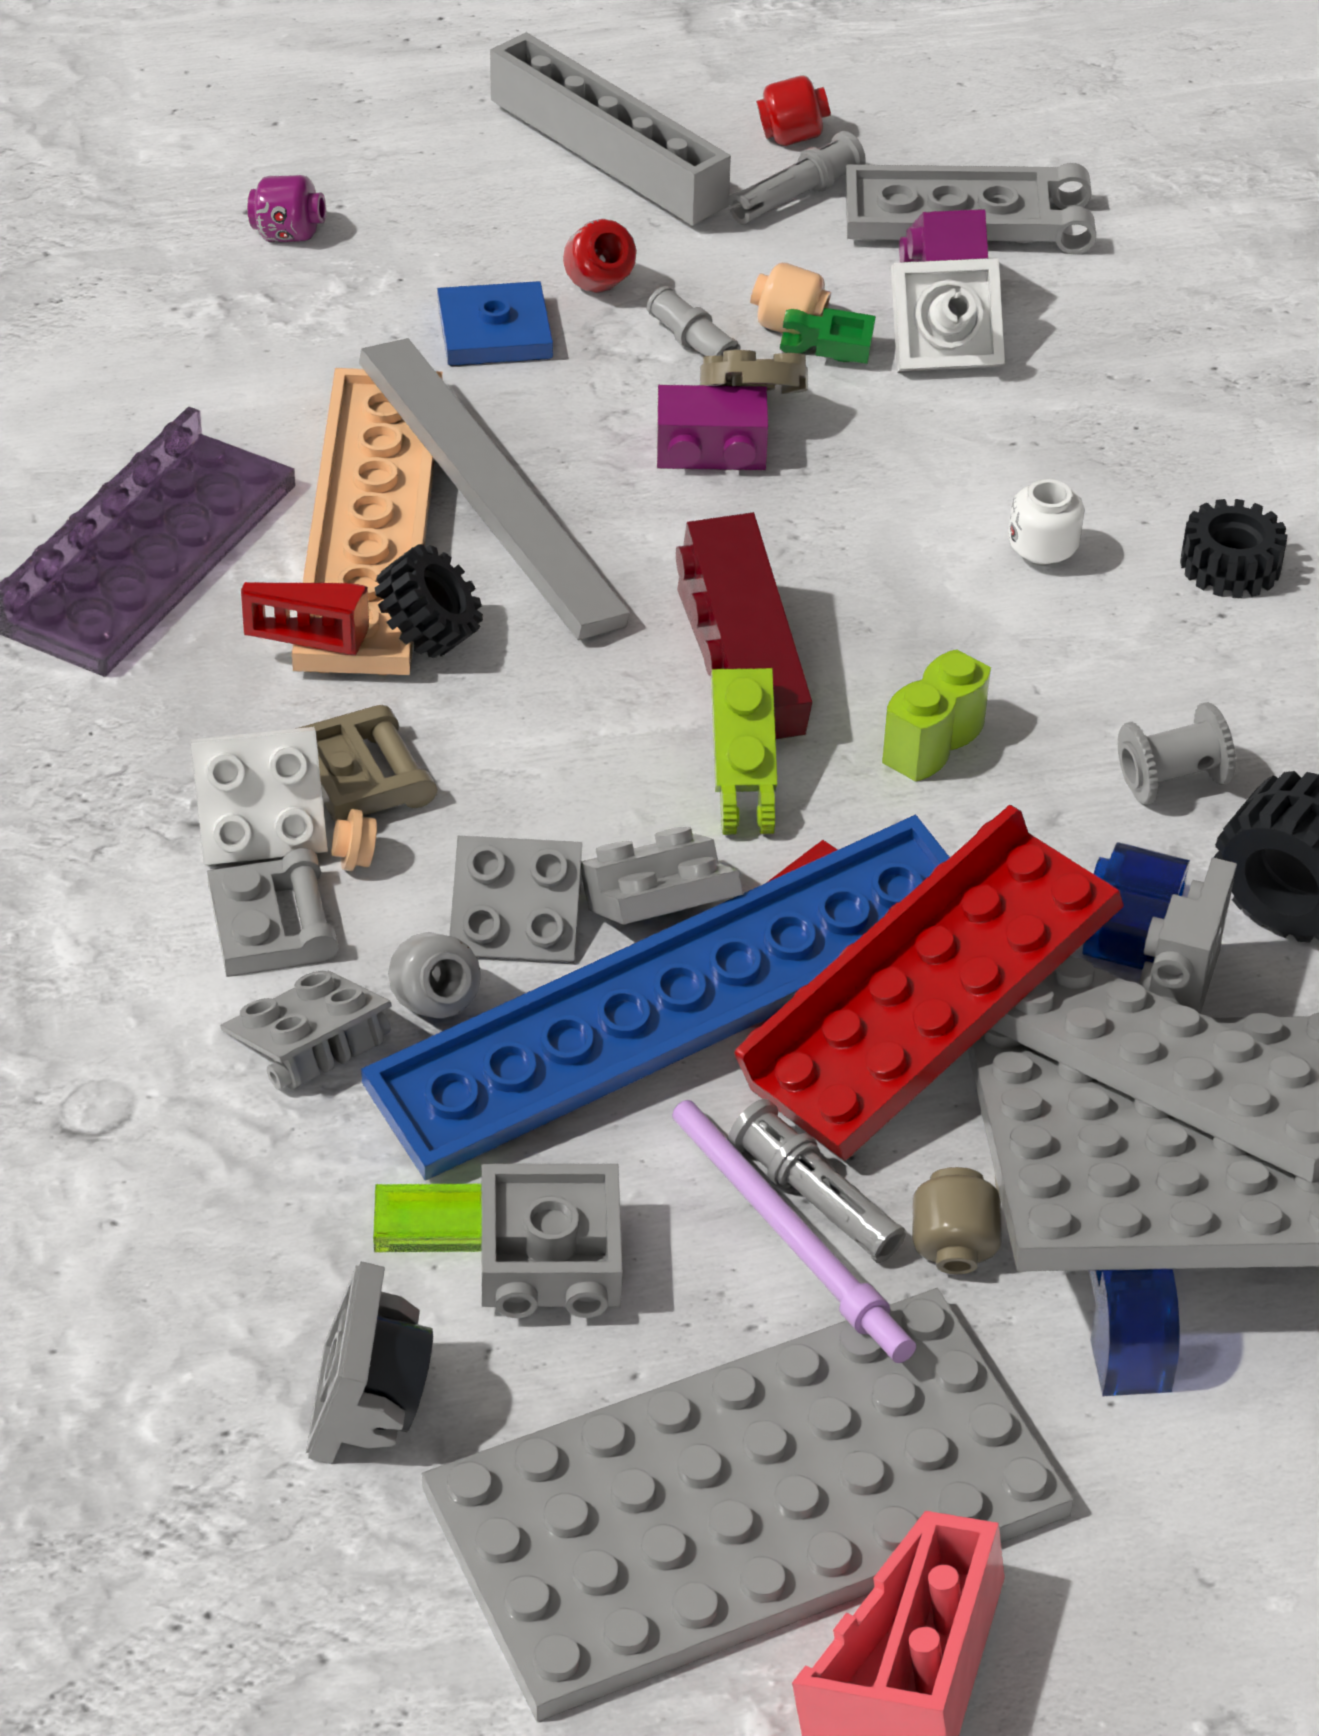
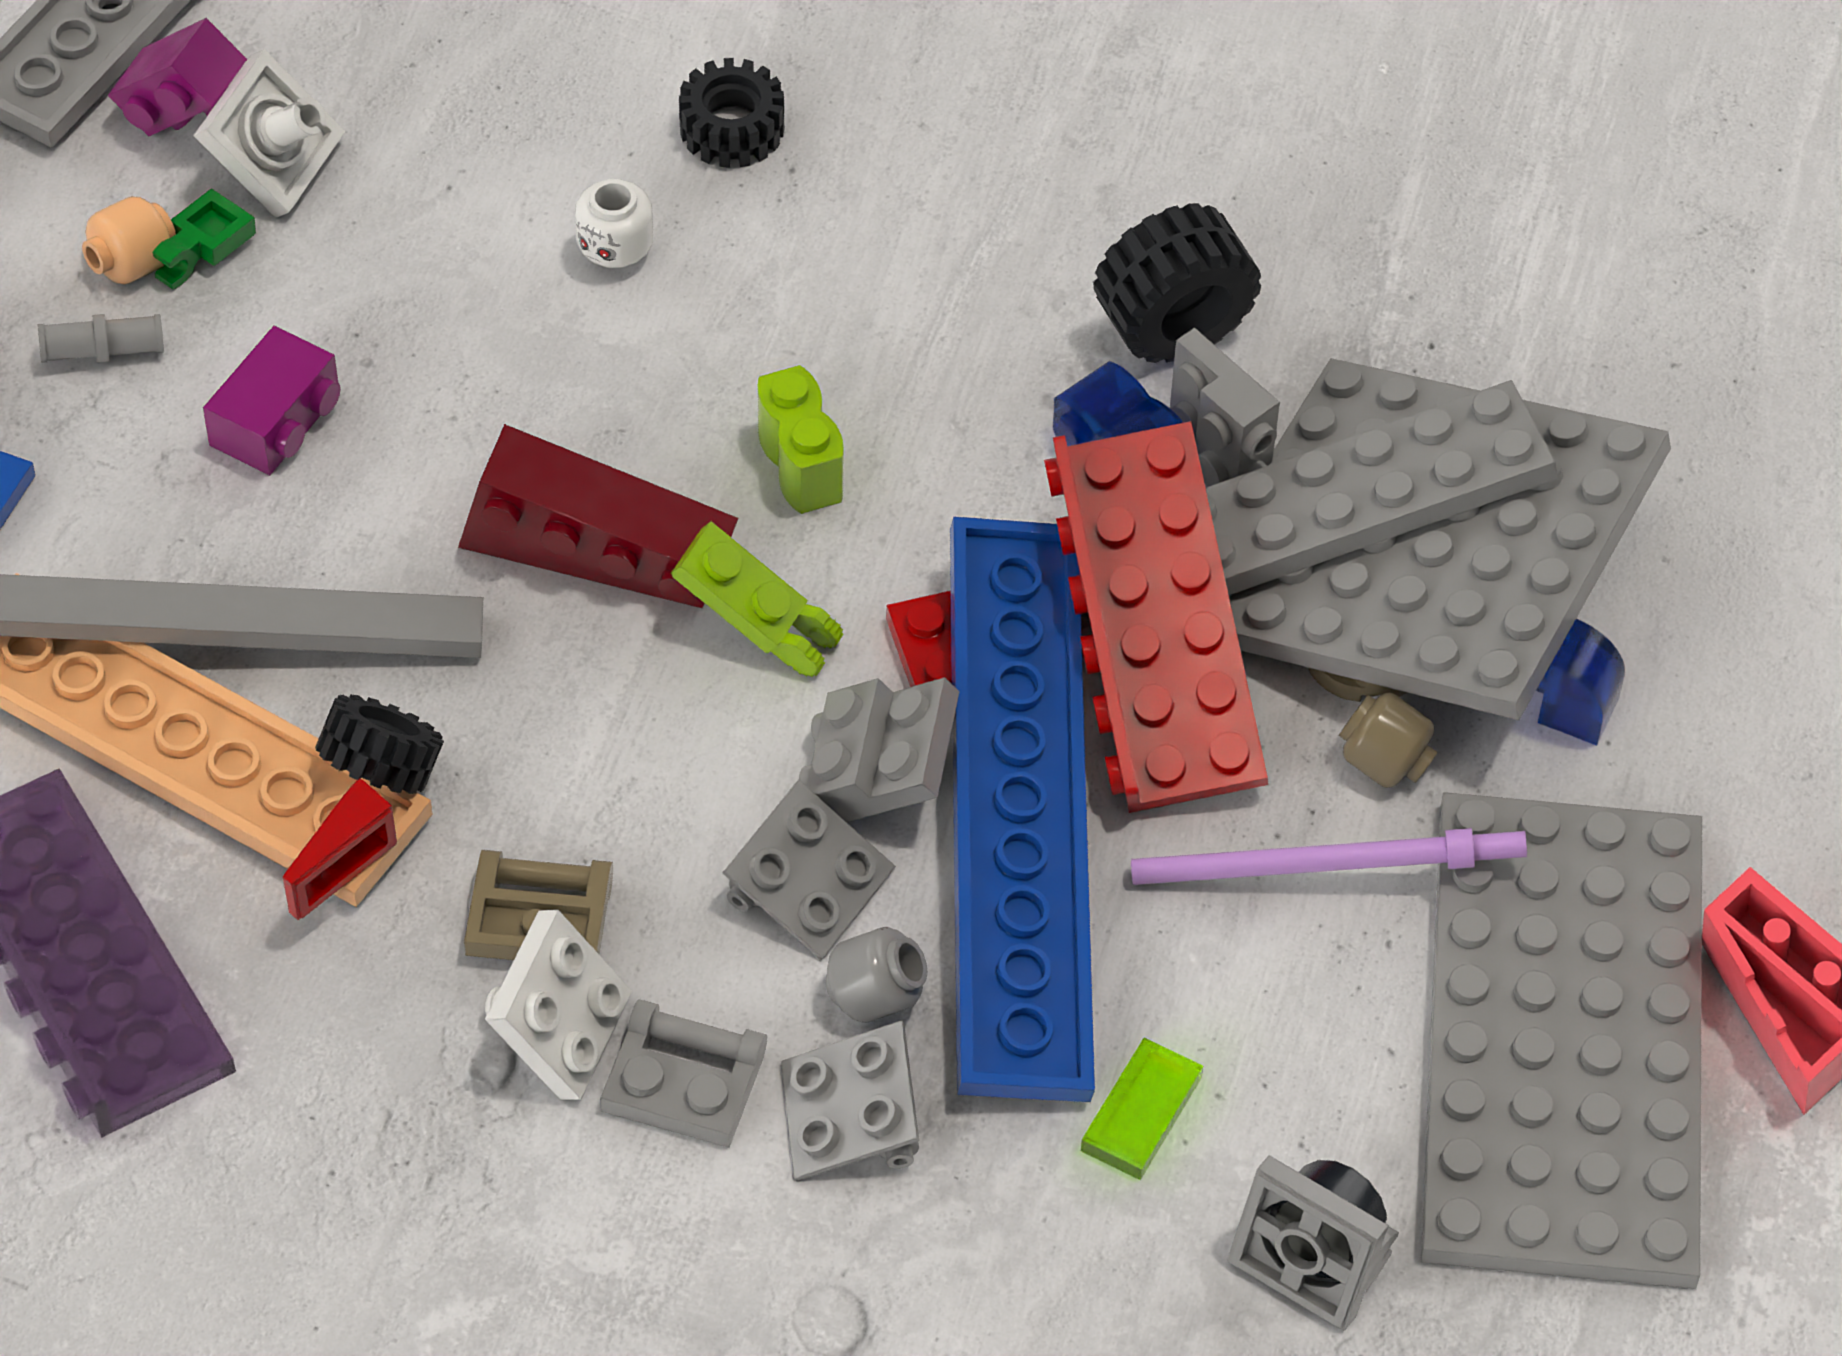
camera: 60 degrees left, 10 degrees up
(354, 840) = (645, 959): light nougat plate -> none
(551, 1238) = (1239, 1032): light grey plate -> none
(743, 369) = (239, 324): dark tan plate -> none
(796, 1163) = (1250, 819): light grey pin -> none
(1176, 753) = (976, 275): light grey hose -> none

